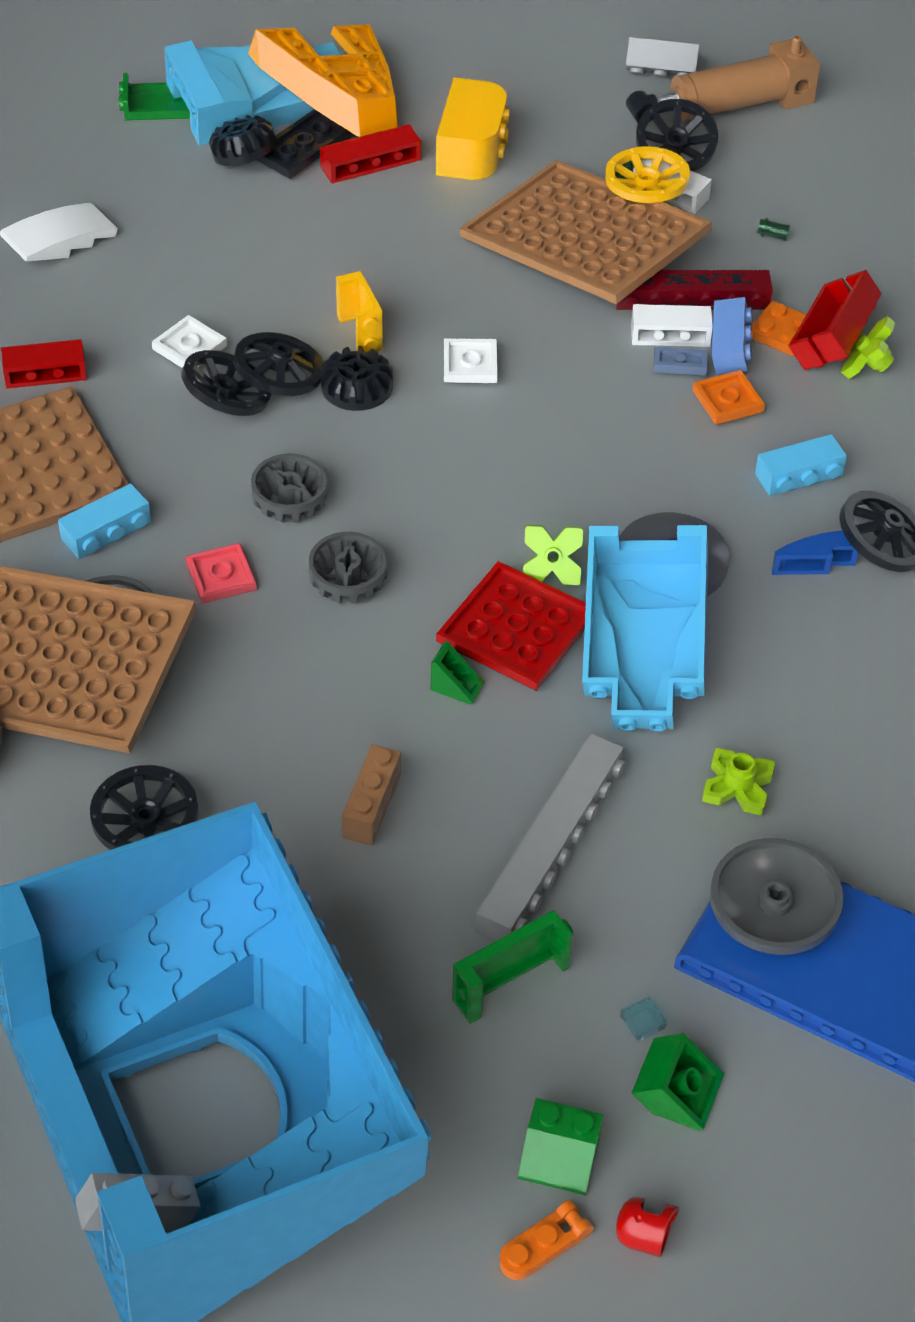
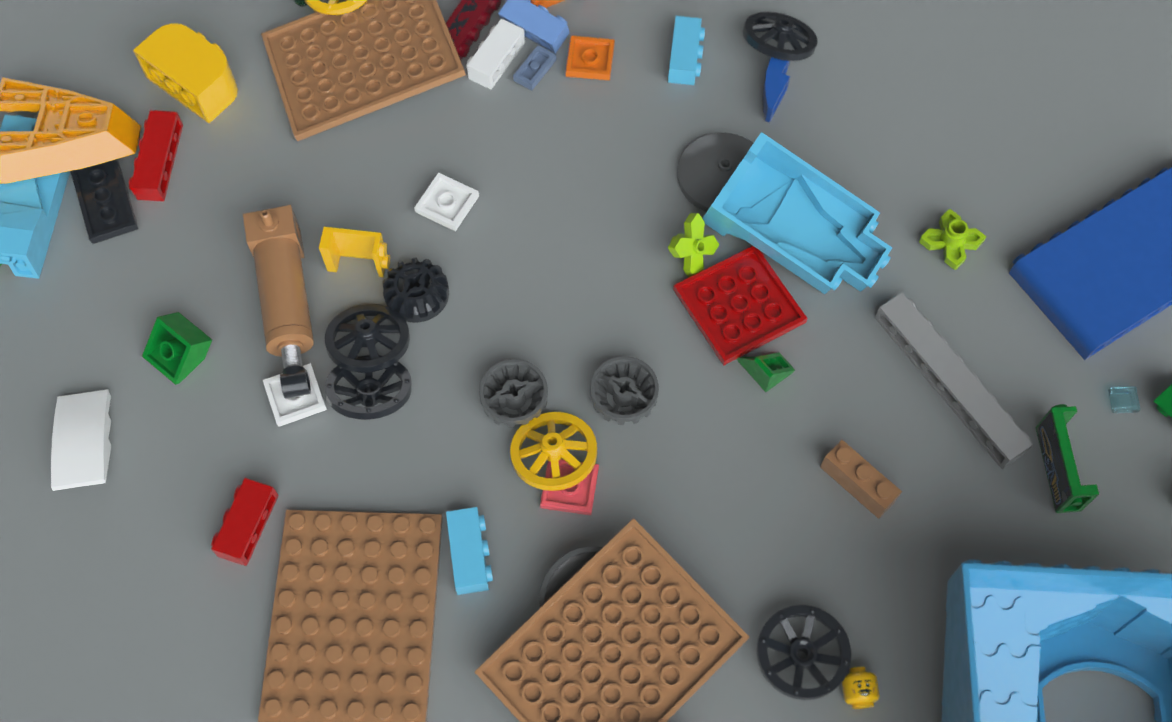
camera: 60 degrees left, 15 degrees up
(187, 248) = (176, 346): none -> green slope
(242, 141) = (81, 241): black gear -> none
(247, 535) = (555, 452): none -> yellow wheel
(281, 284) = (277, 253): none -> medium nougat piece
(776, 896) = (1090, 266): dark grey dish -> none

